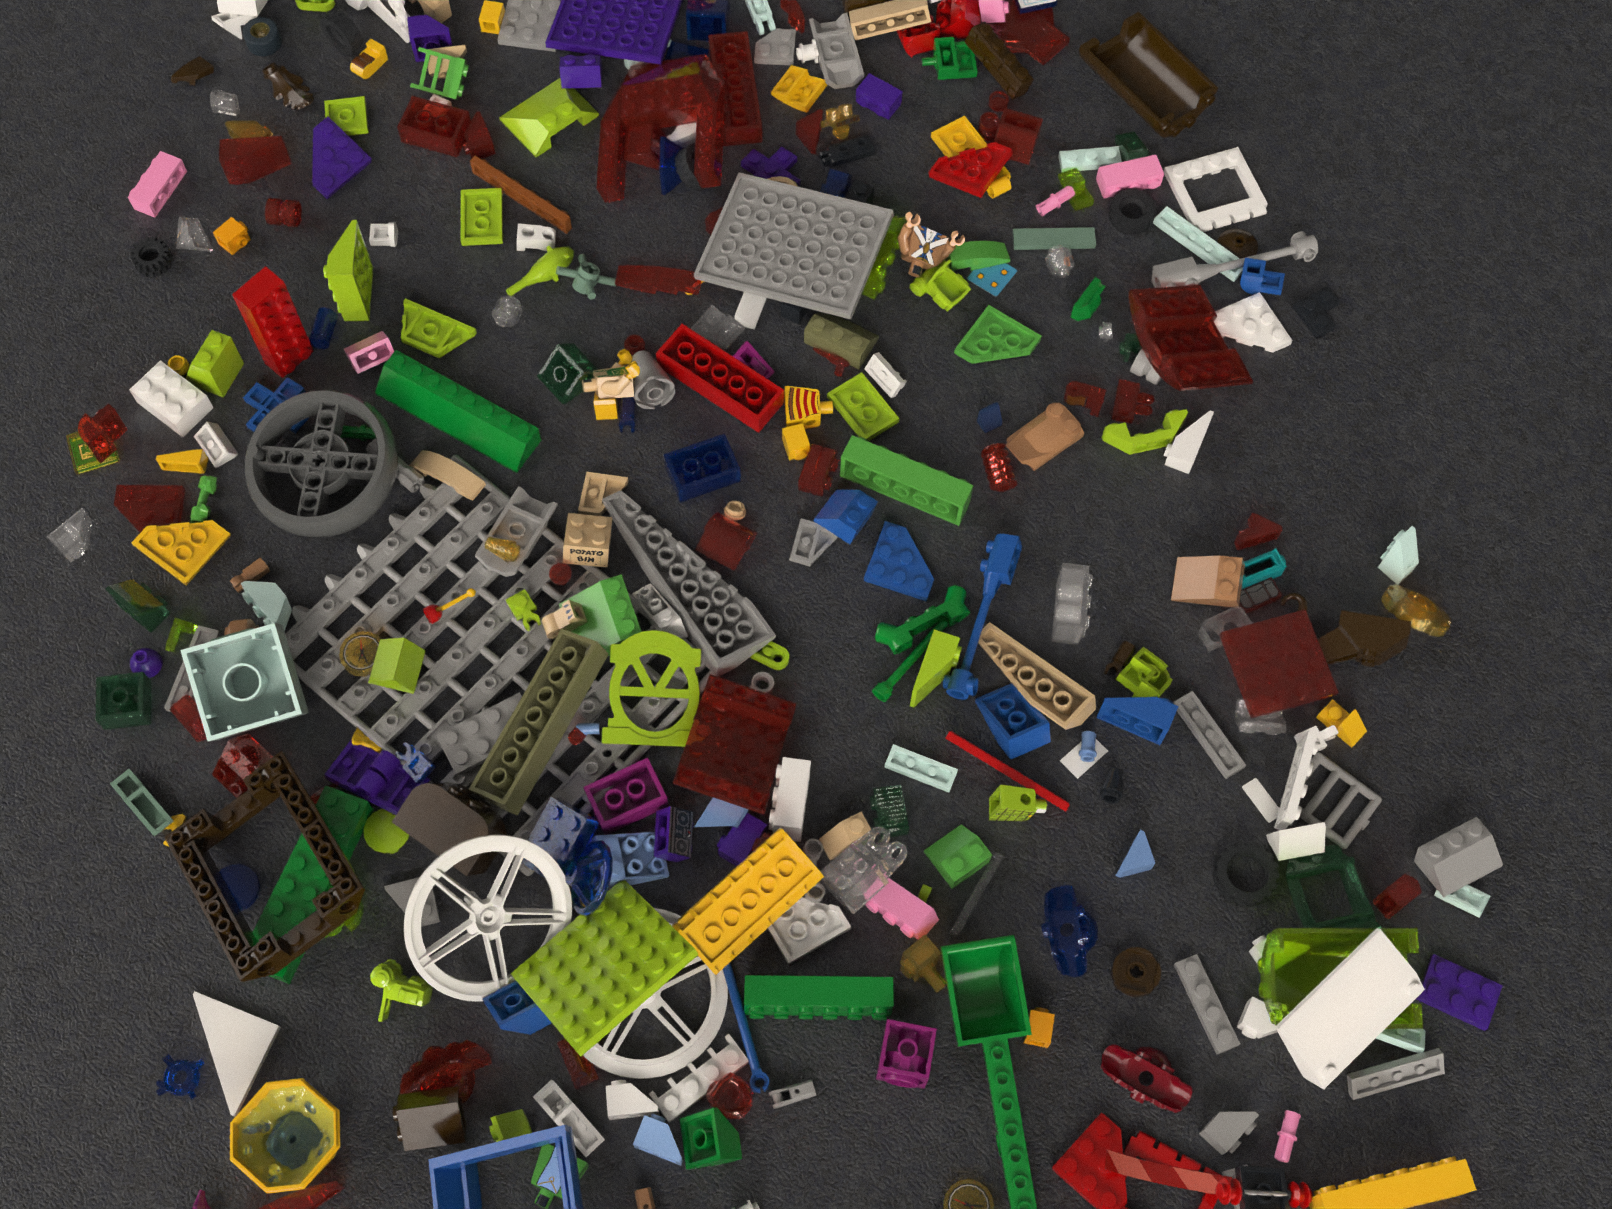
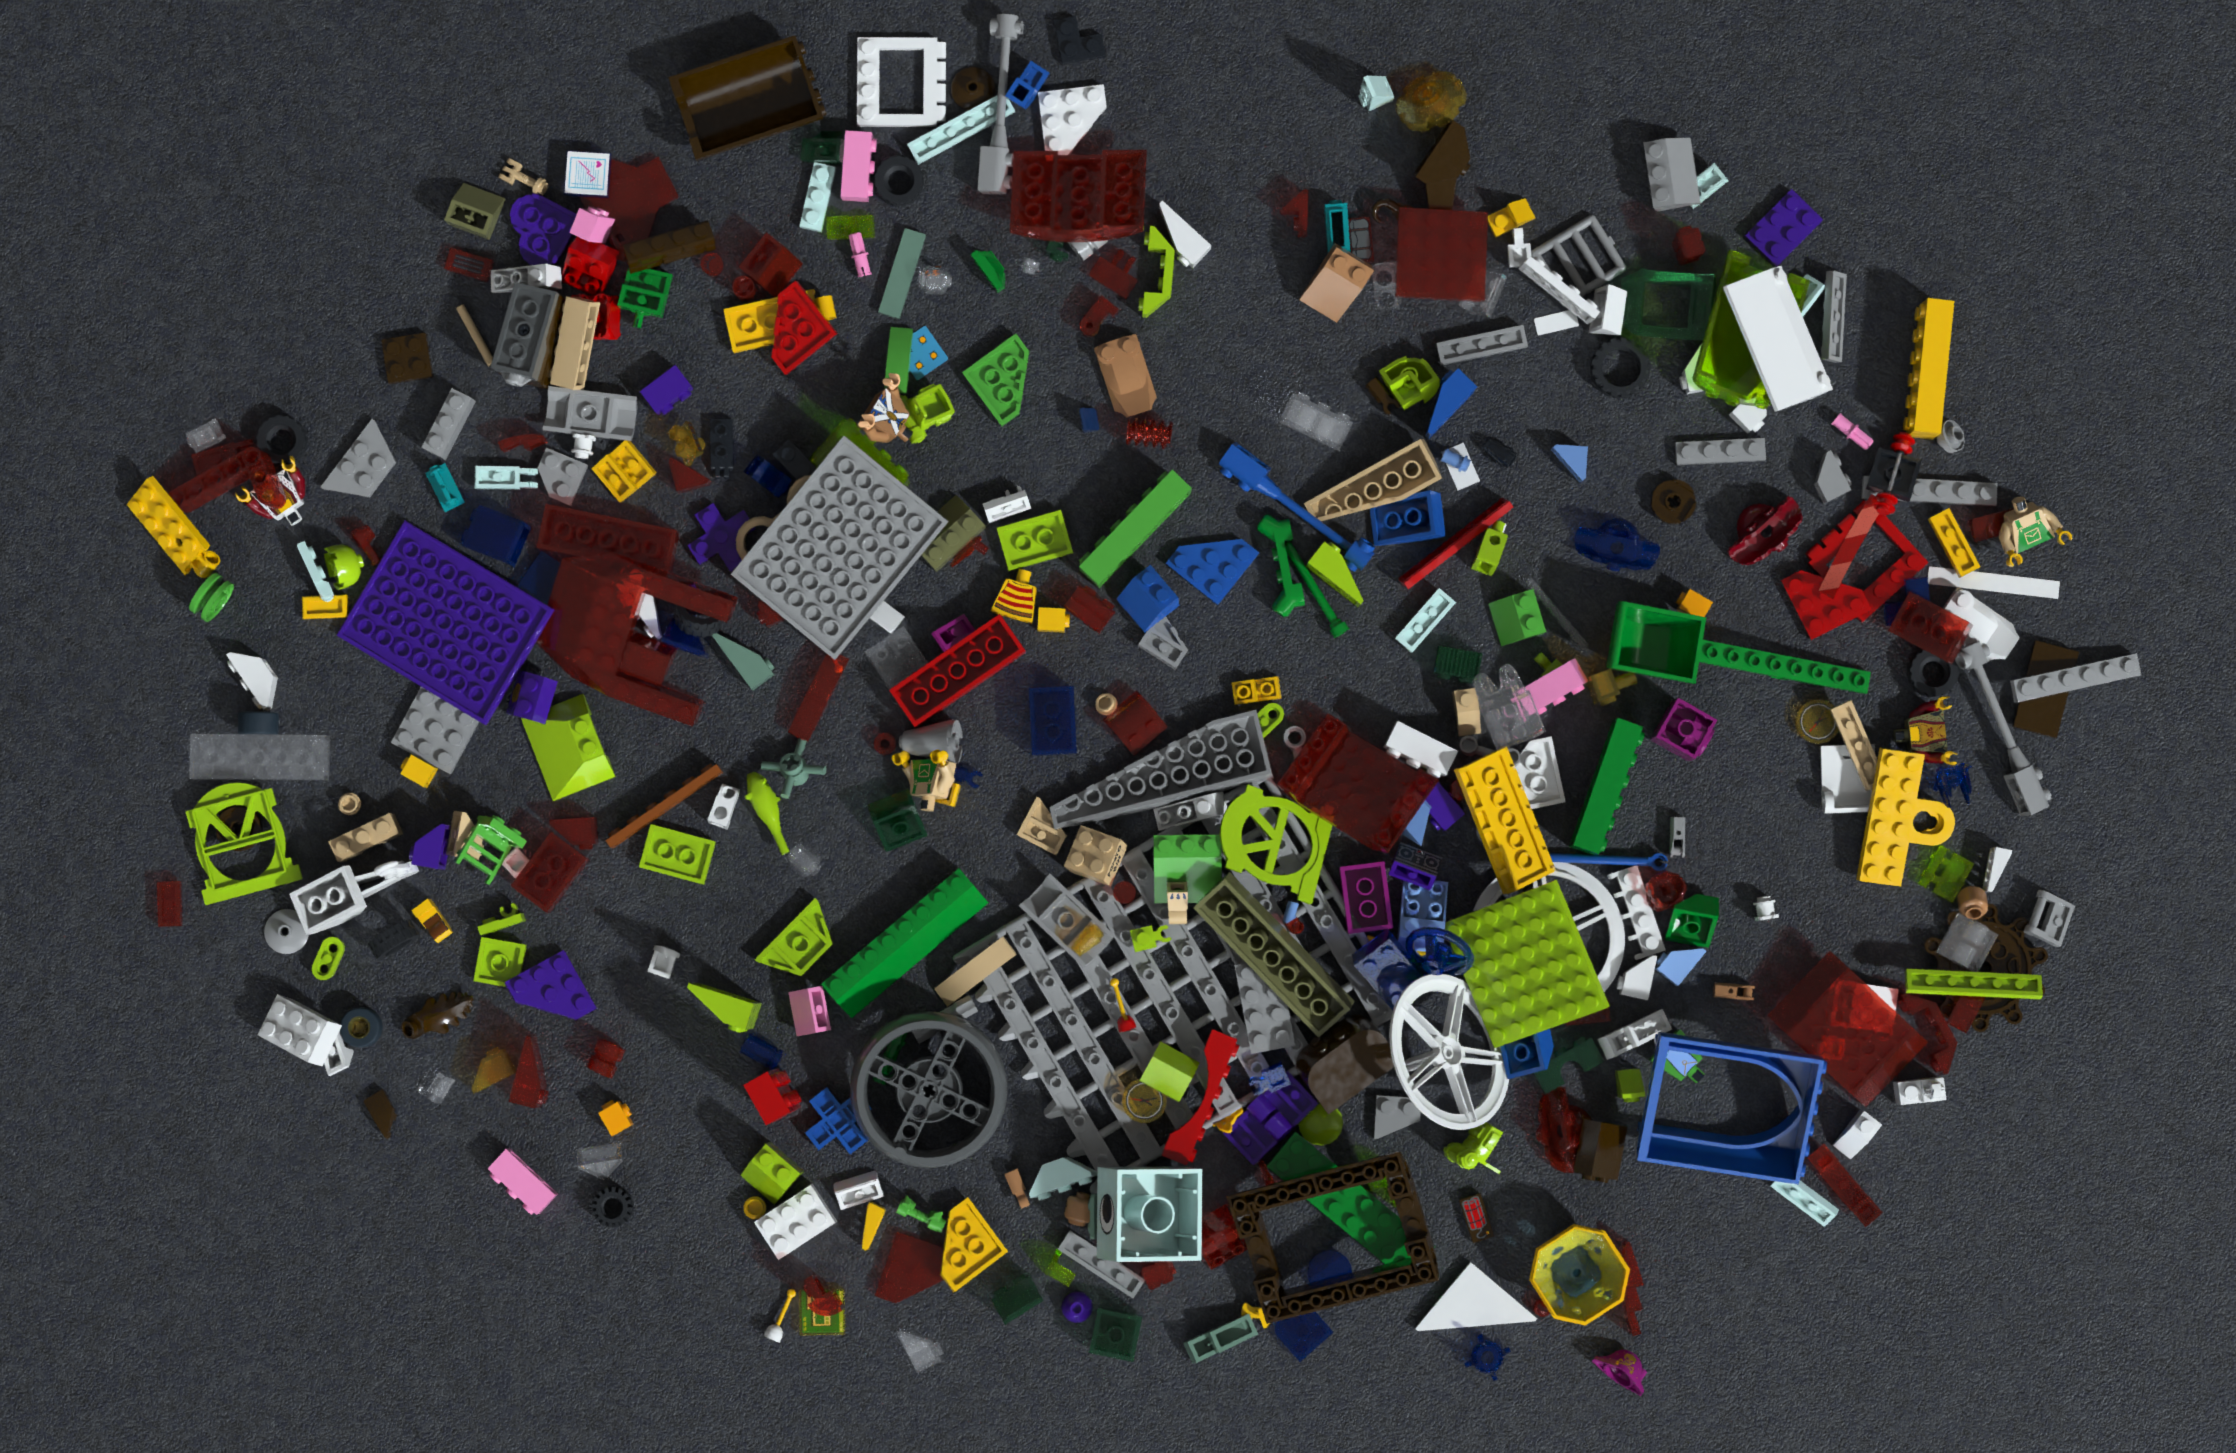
camera: 65 degrees left, 20 degrees up
(64, 414) = (774, 1331): none -> hinge
(164, 881) = (1302, 1333): none -> clear blue plate
(328, 1017) = (1476, 1218): none -> tile
(385, 112) = (491, 924): none -> lime plate
(426, 703) = (1182, 1141): none -> red arch
(532, 1069) = (1583, 1052): none -> clear green arch
(666, 221) = (749, 664): none -> sand green slope
(795, 637) = (1256, 690): none -> yellow slope

